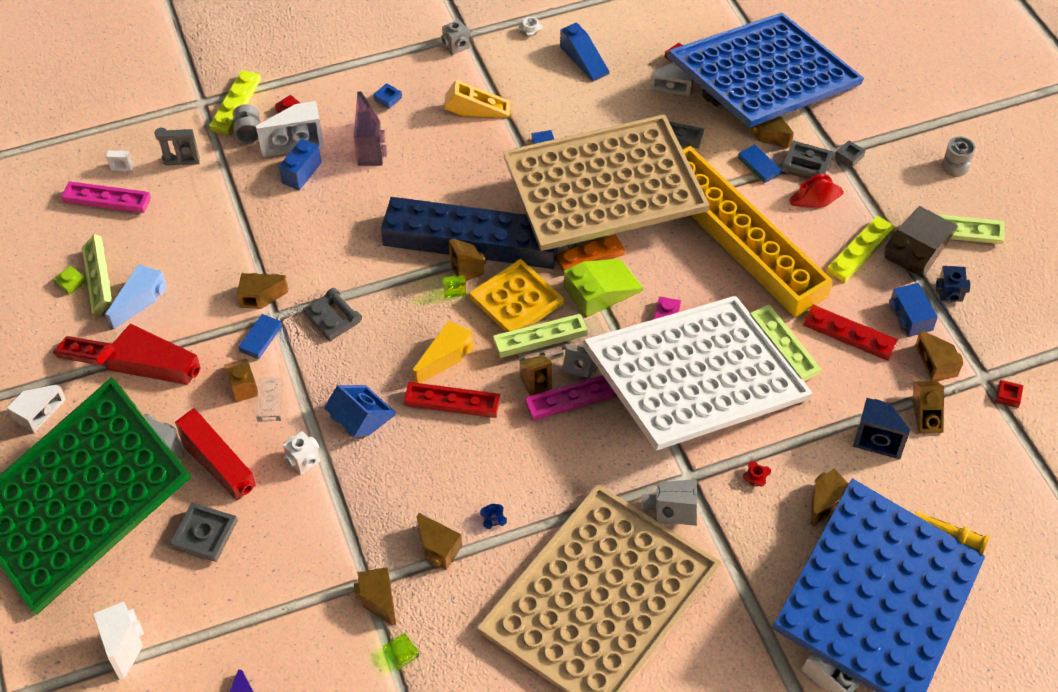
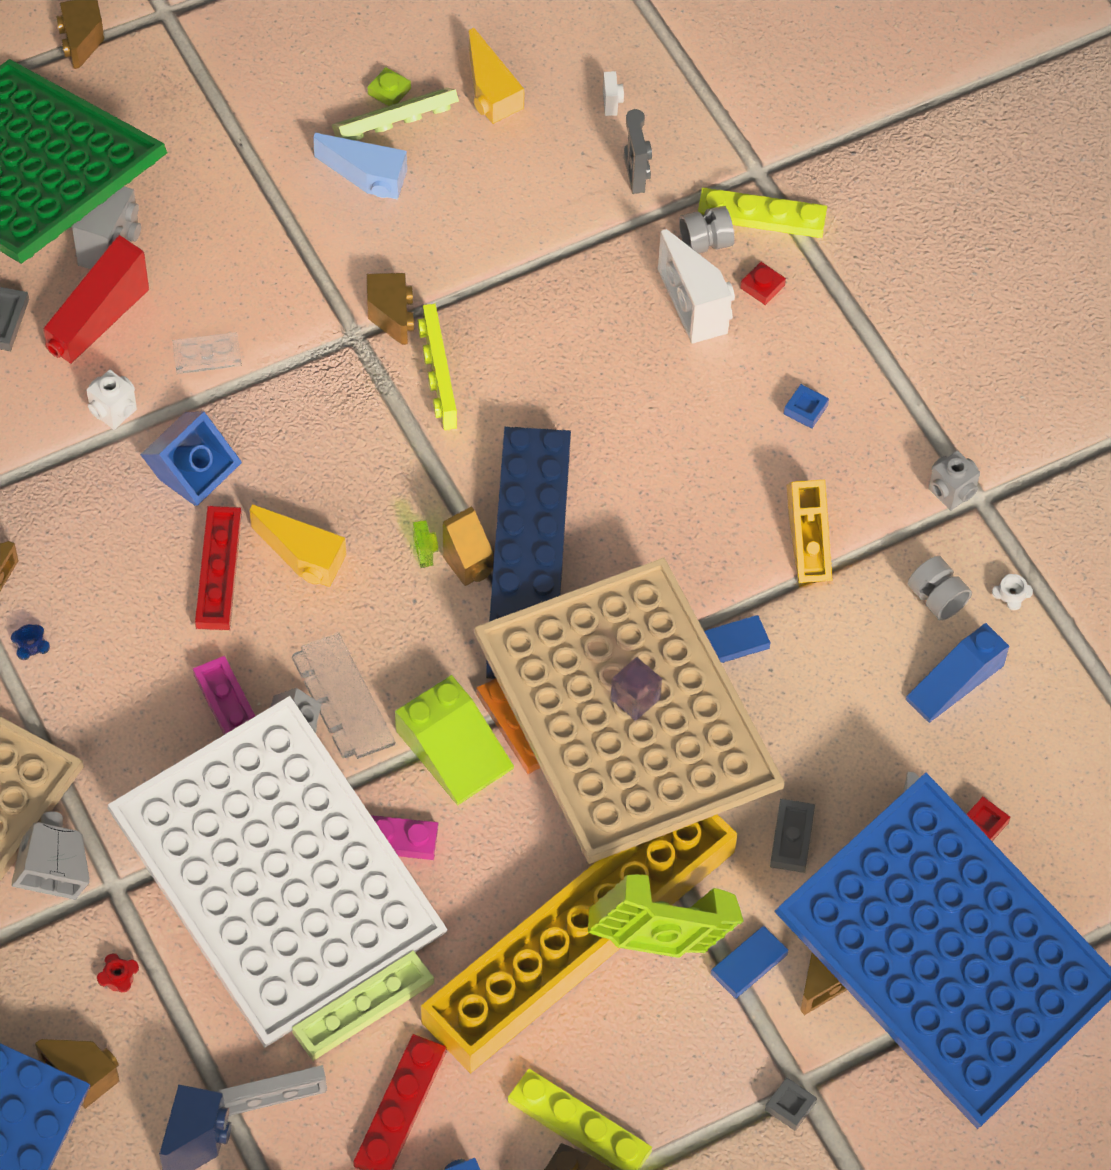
camera: 80 degrees right, 5 degrees up
(36, 406) = (165, 96): white slope -> none
(83, 221) = (495, 87): none -> yellow slope
(83, 350) = (256, 124): red tile -> none
(106, 197) = (541, 94): dark pink plate -> none
(152, 357) = (260, 202): red slope -> none
(241, 380) = (234, 309): pearl gold slope -> none
(260, 336) = (313, 323): blue tile -> none
(300, 164) = (635, 312): blue brick -> none
(317, 266) = (439, 377): none -> neon yellow plate
(327, 320) = (354, 396): dark grey plate -> none
(368, 134) = (707, 382): slope -> none
(516, 297) = (411, 629): yellow plate -> none
(529, 51) = (936, 584): none -> light grey wheel
(536, 374) = (265, 662): pearl gold slope -> none
(540, 335) = (338, 664): yellowish green plate -> none
(602, 164) = (636, 688): none -> brick
(748, 178) = (638, 924): none -> lime plate
(808, 156) = (773, 1039): dark grey plate -> none
(816, 192) = (693, 1055): red hat -> none
(844, 393) = (274, 1090): none -> light grey tile

